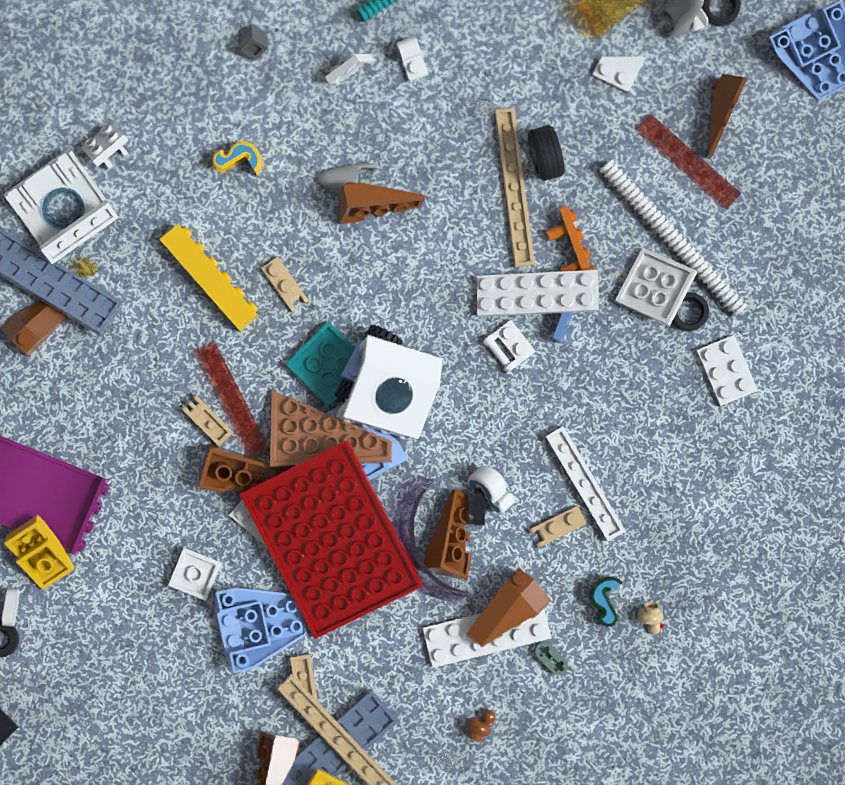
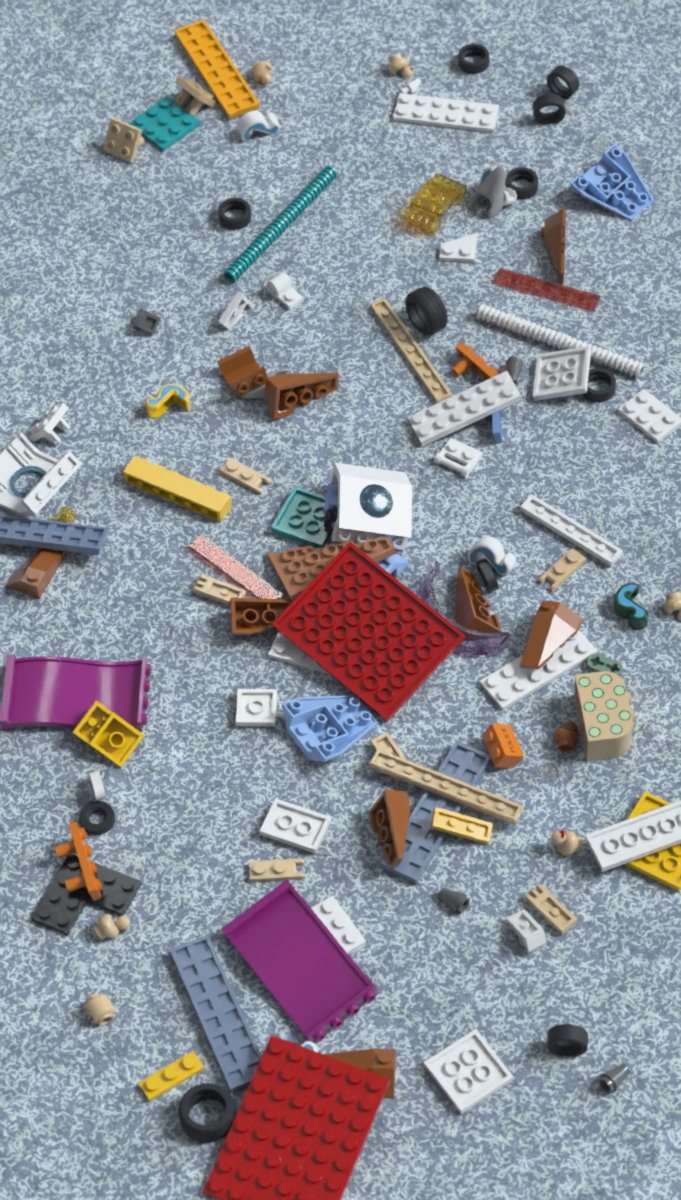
camera: 20 degrees left, 30 degrees down
(147, 763) = (275, 870): none -> tan hinge
(183, 723) = (295, 826): none -> white plate
(328, 155) = (242, 371): none -> dark orange panel
(413, 716) = (502, 745): none -> orange brick
(523, 724) = (604, 714): none -> tan brick
(609, 257) = (514, 367): none -> dark grey cone

